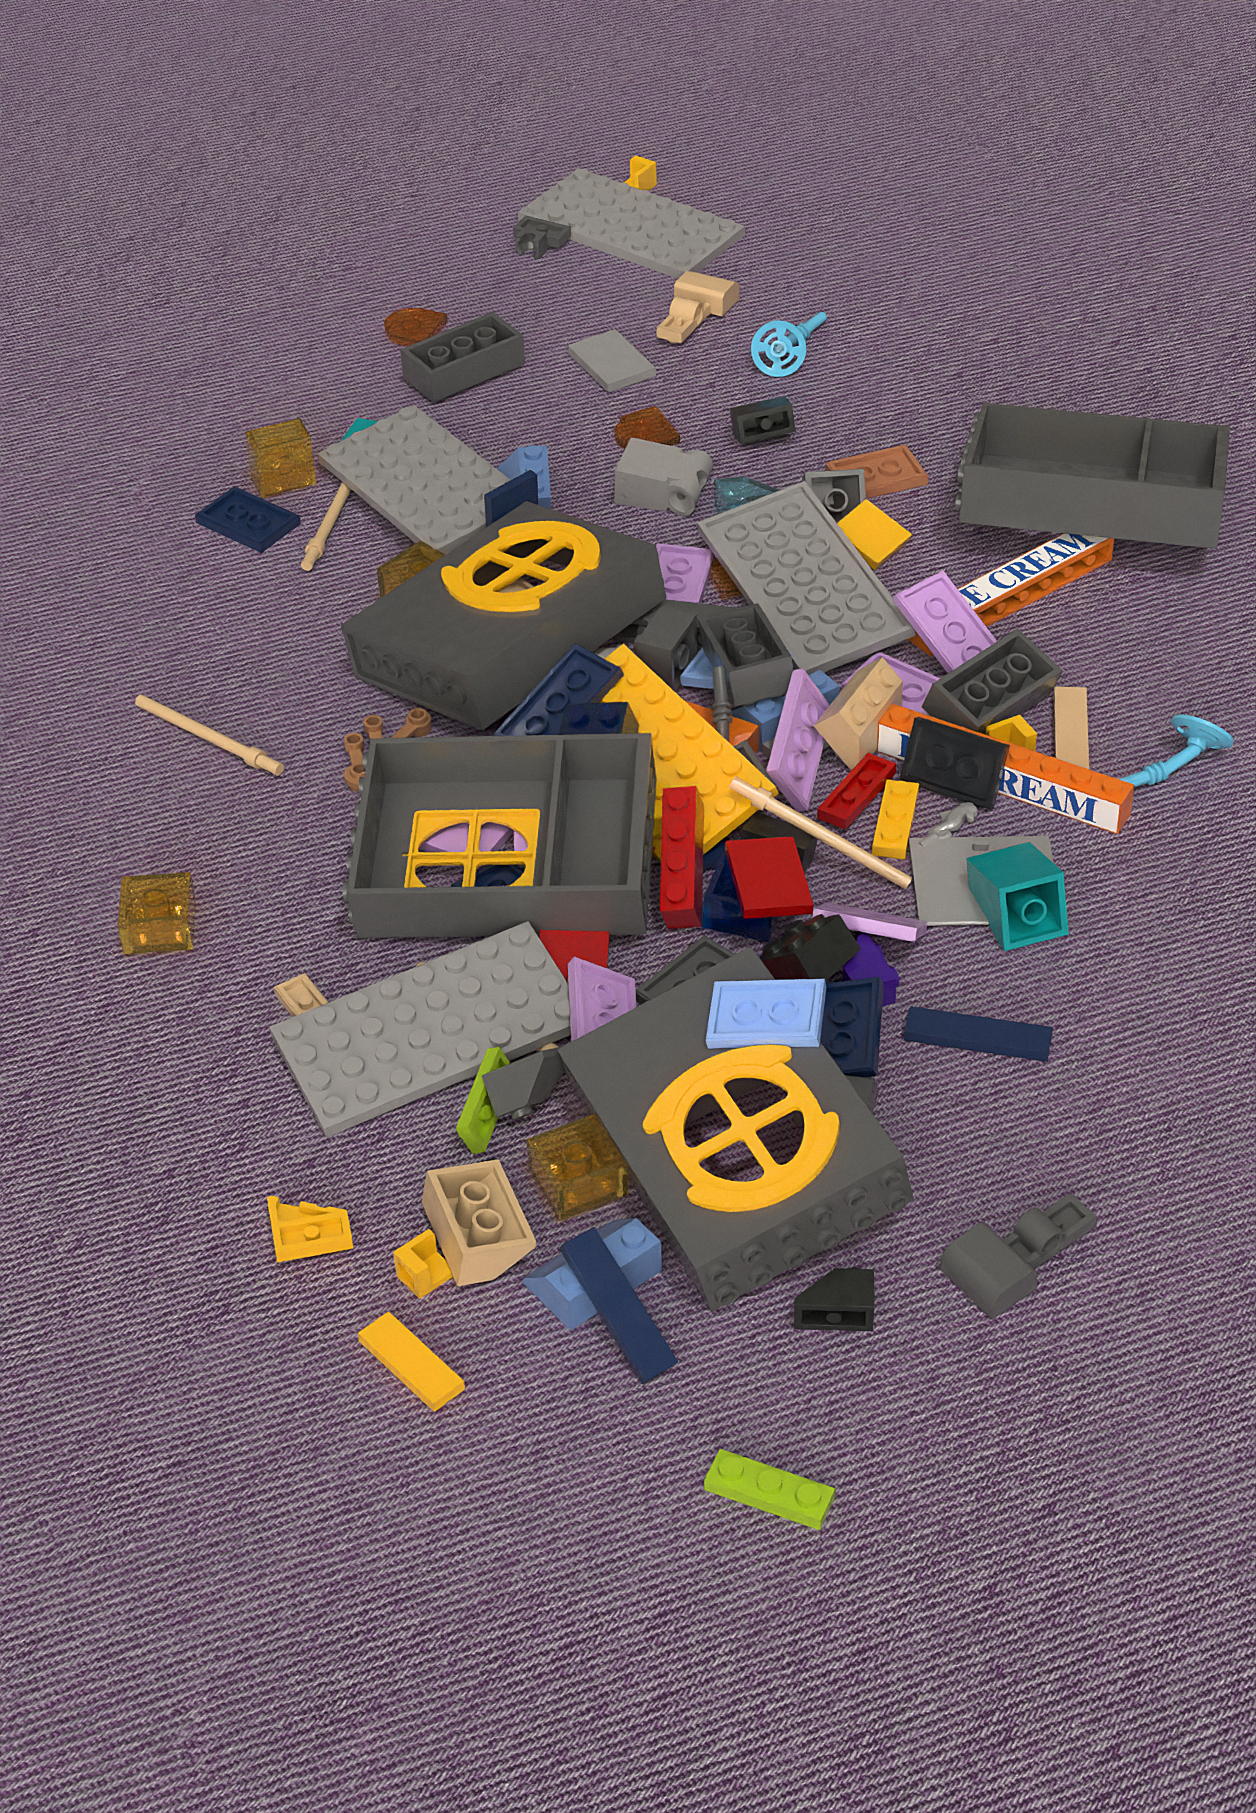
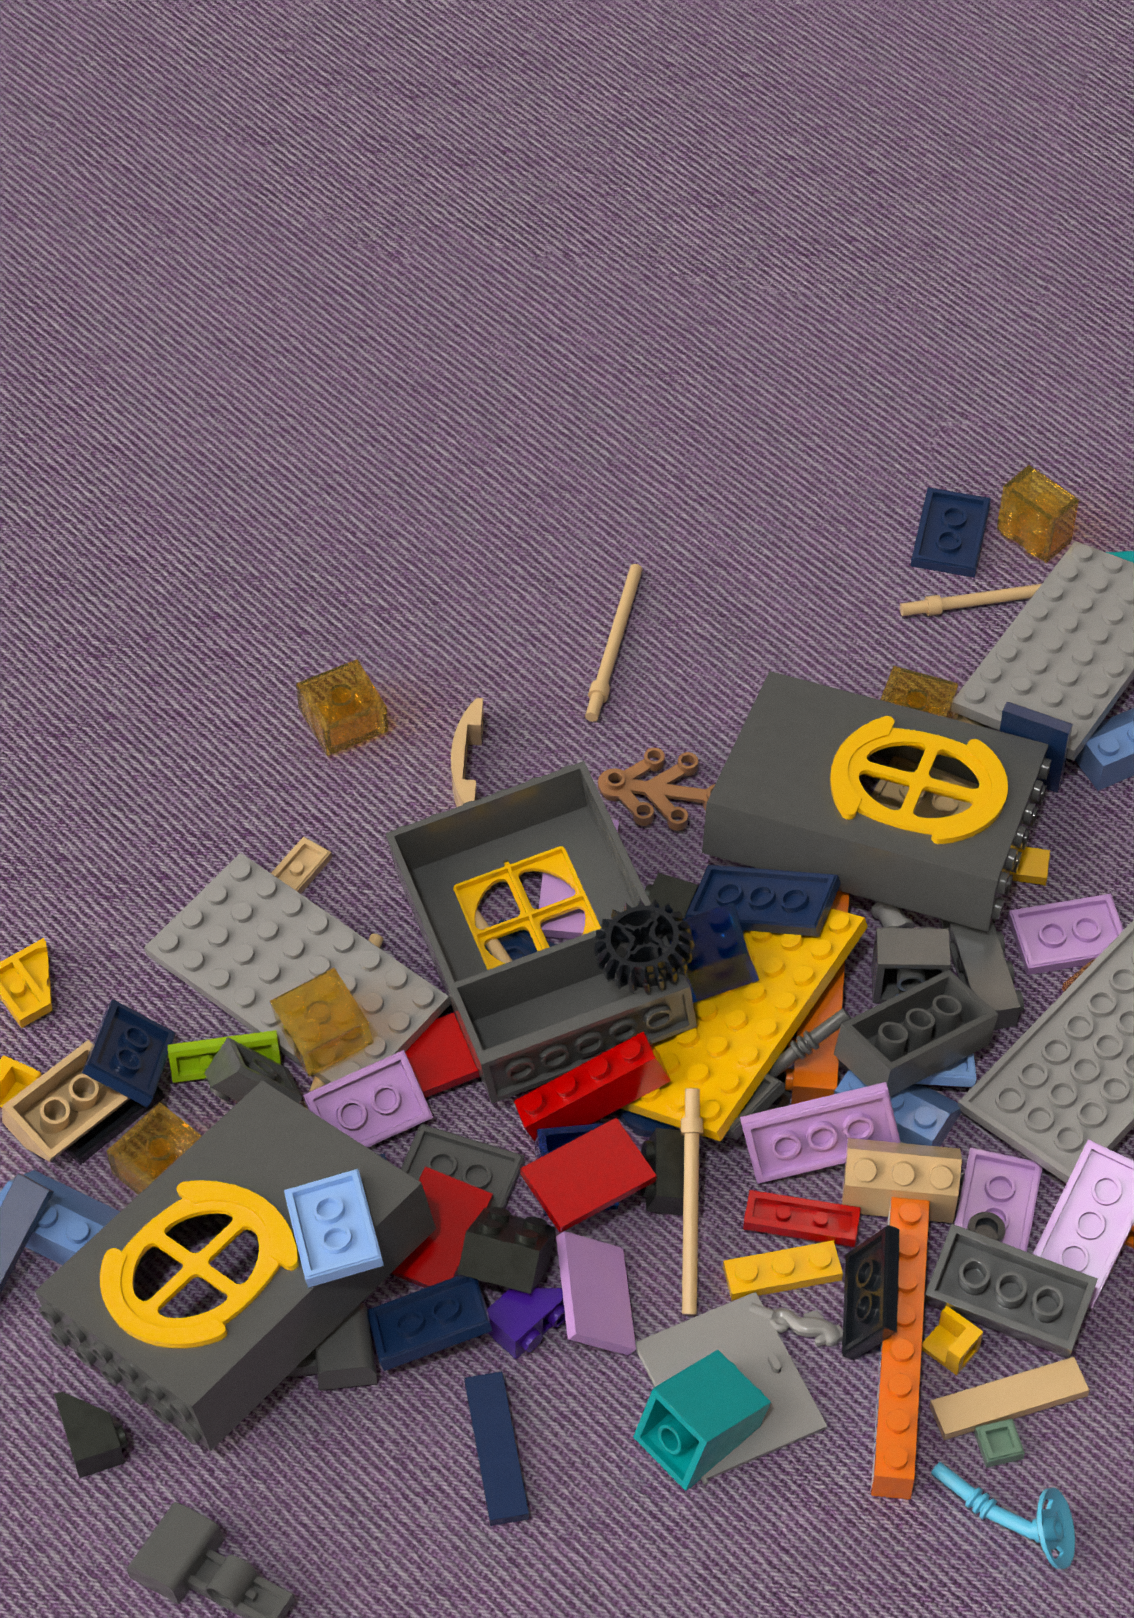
camera: 65 degrees right, 10 degrees up
(307, 867) = (467, 733): none -> tan slope
(452, 1153) = (129, 1053): none -> dark blue tile
(511, 1000) = (321, 1022): none -> clear yellow brick
(601, 740) = (646, 957): none -> black gear
(919, 691) = (987, 1225): none -> black tile
(1106, 750) = (999, 1443): none -> sand green tile

